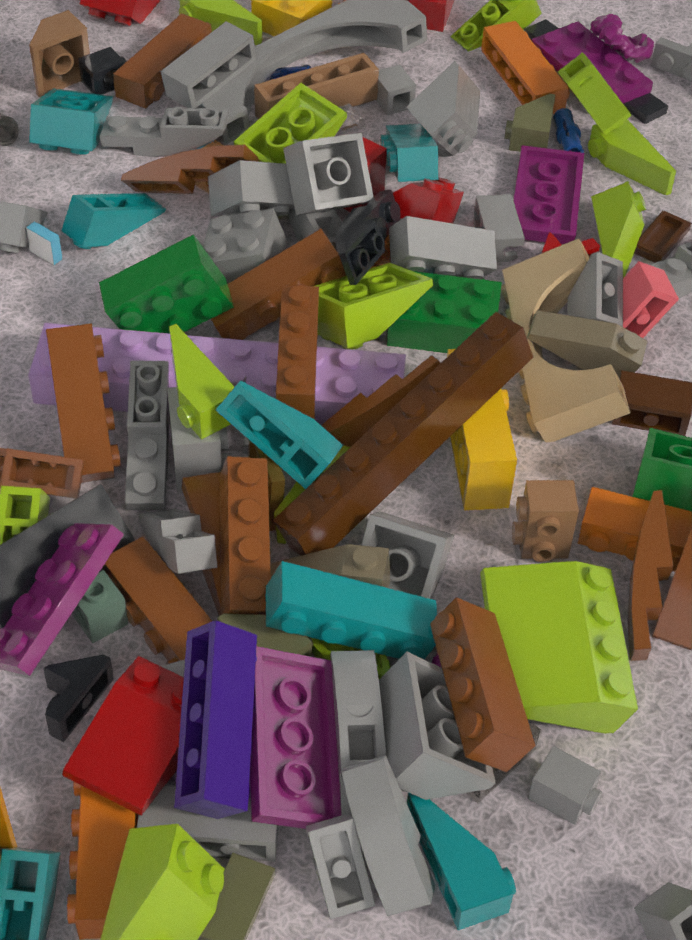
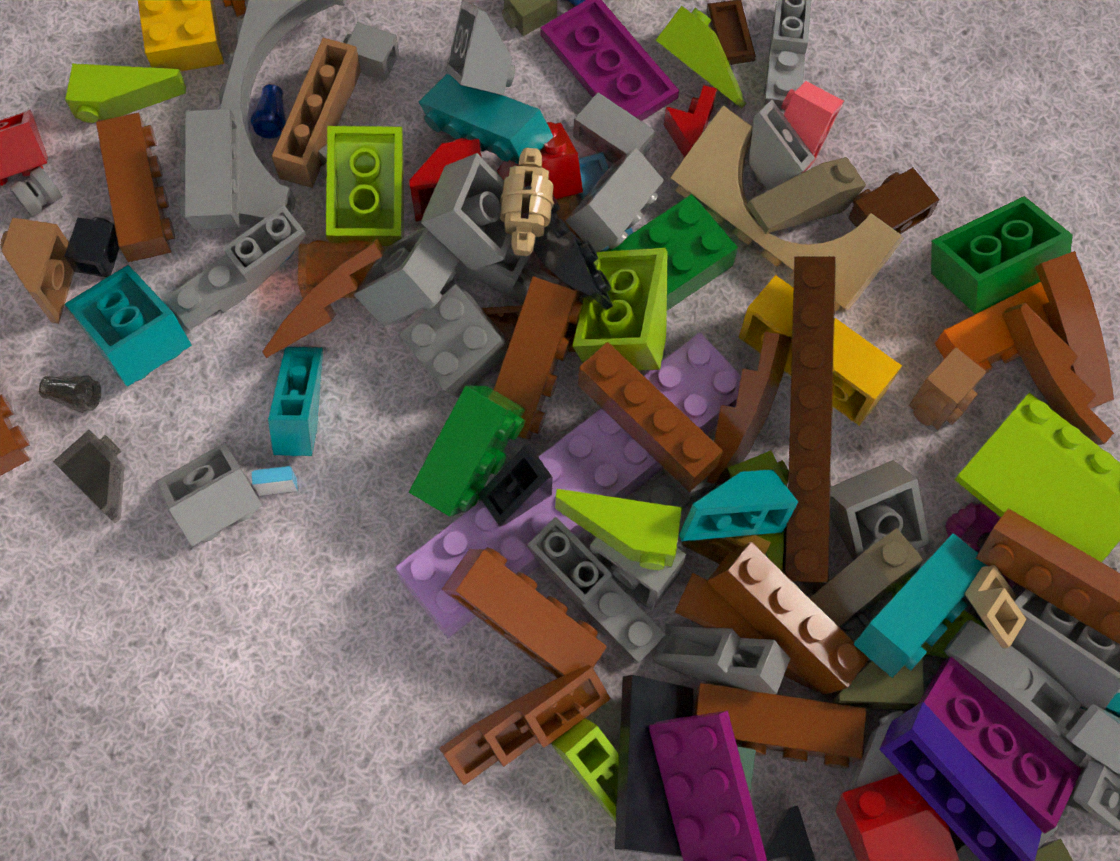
camera: 45 degrees left, 20 degrees up
(108, 28) = (42, 186): none -> light grey wheel
(154, 331) = (517, 487): none -> black slope
(364, 183) = (535, 202): none -> tan piece
(389, 639) = (995, 605): none -> tan slope

